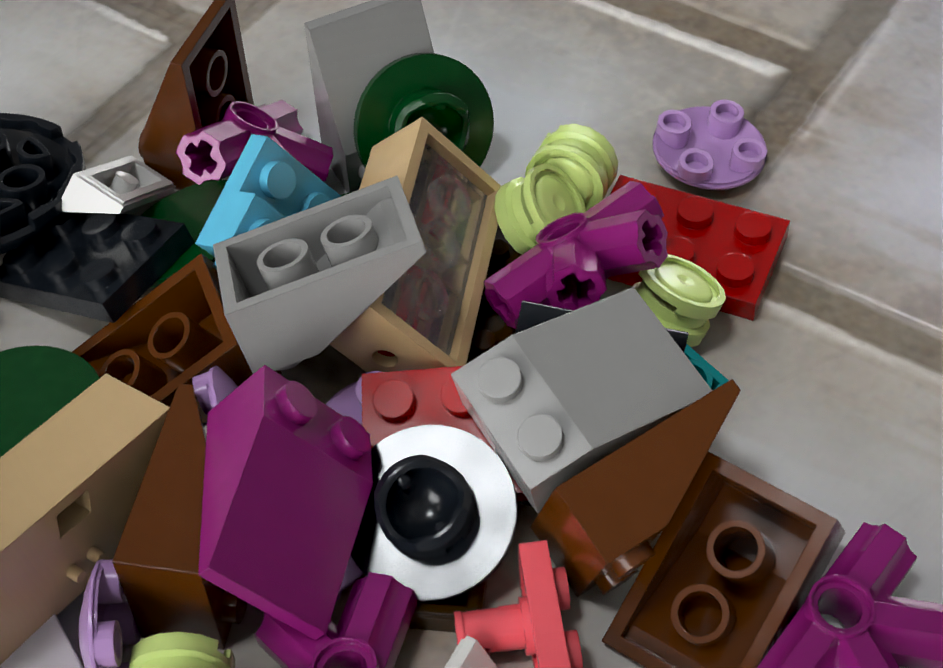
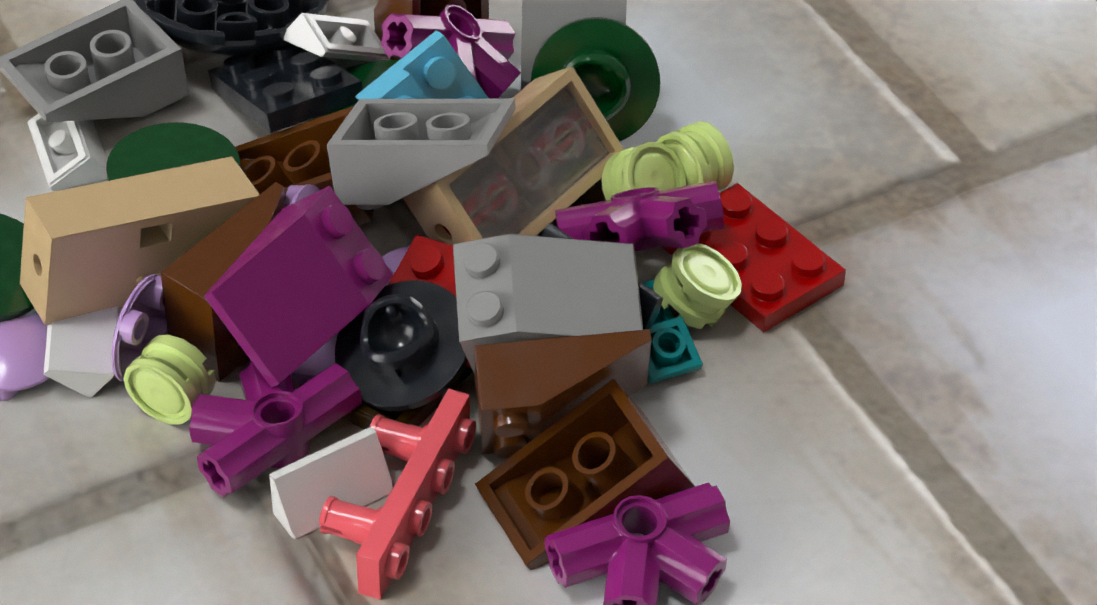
camera: 25 degrees right, 5 degrees down
(709, 146) = (830, 189): lavender dish -> none

